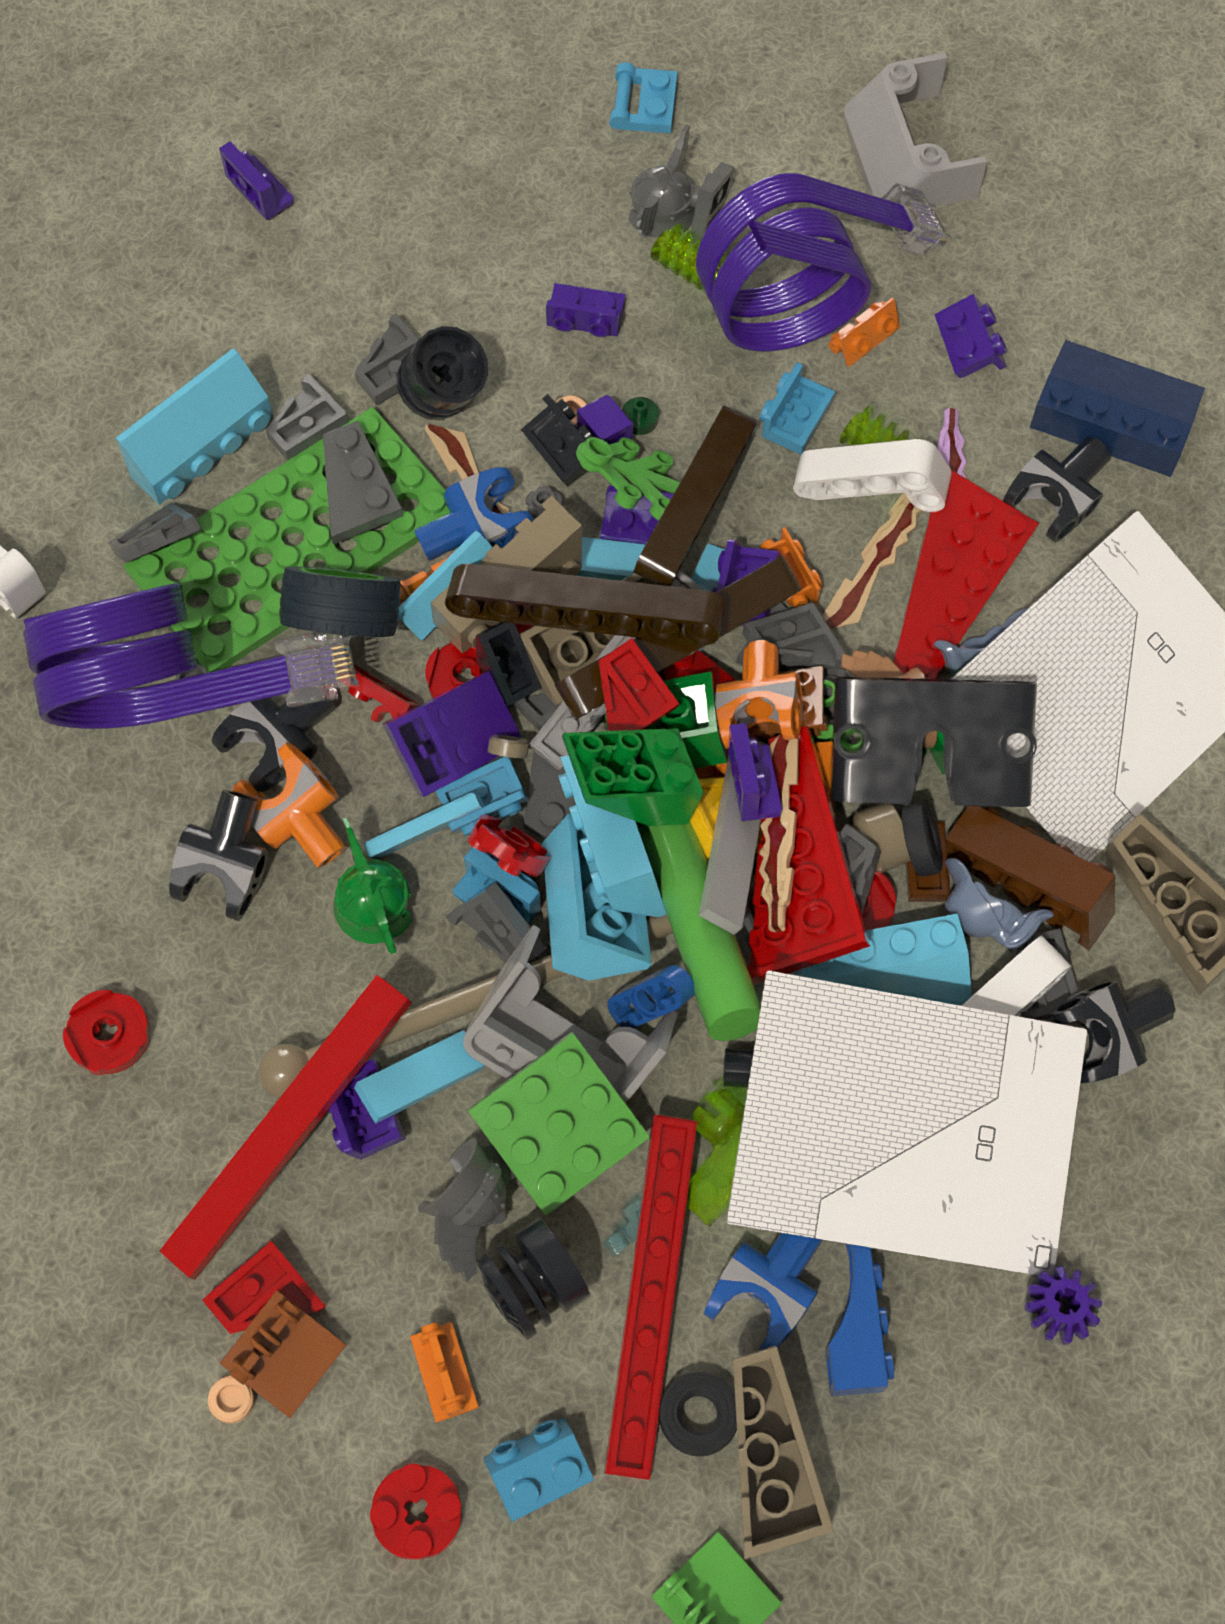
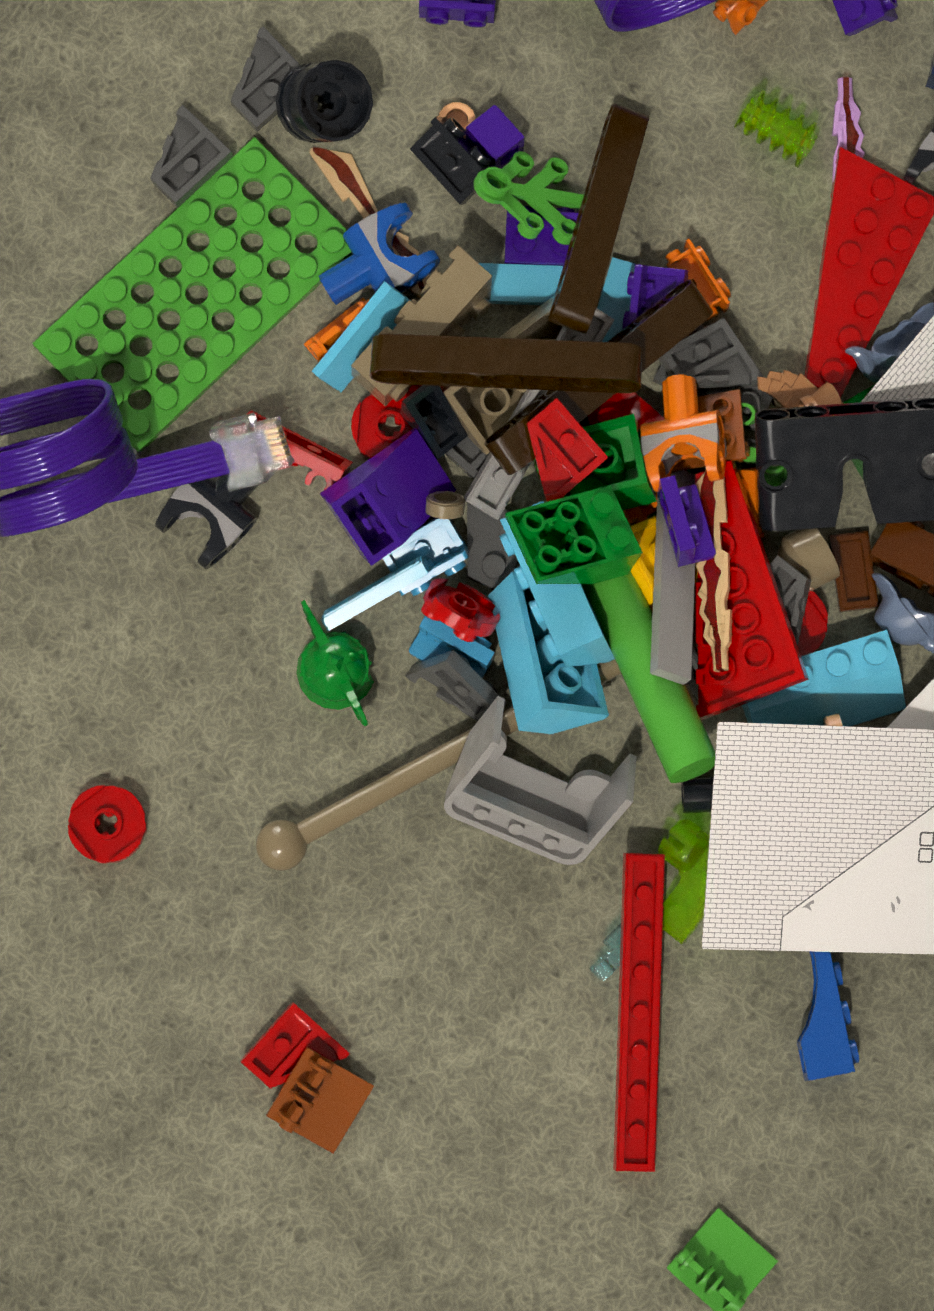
camera: 10 degrees left, 15 degrees up
(154, 532) = (59, 306): dark grey wing -> none
(195, 427) = (82, 188): medium azure slope -> none
(222, 853) = (187, 641): black connector -> none
(230, 1400) = (278, 1145): light nougat tile -> none
(285, 1127) = (292, 898): red tile -> none
(297, 809) = (249, 589): orange connector -> none
(339, 601) = (261, 373): black wheel -> none
(355, 484) = (253, 232): dark grey wing -> none
(355, 1128) = (355, 873): dark purple bracket -> none
(417, 1077) = (403, 838): medium azure tile -> none
(419, 1539) = (461, 1243): red plate -> none
(443, 1371) = (463, 1098): orange hinge -> none
(468, 1204) = (471, 944): dark grey helmet -> none
(533, 1278) = (533, 1012): black wheel -> none
(534, 499) = (439, 237): dark grey plate -> none
(538, 1468) = (556, 1172): dark azure bracket -> none
(558, 1123) = (539, 870): bright green plate -> none
(642, 414) = (528, 116): dark green tile -> none
(657, 987) = (610, 743): blue beam -> none
(671, 1421) = (714, 1101): black tyre -> none
(770, 1280) = (745, 987): blue connector -> none
(776, 1472) = (763, 1154): dark tan wedge -> none
(795, 411) = (688, 98): dark azure bracket -> none
(876, 469) = (773, 168): white beam -> none
(880, 552) = (761, 295): tan sword -> none
(922, 839) = (848, 559): black tyre -> none

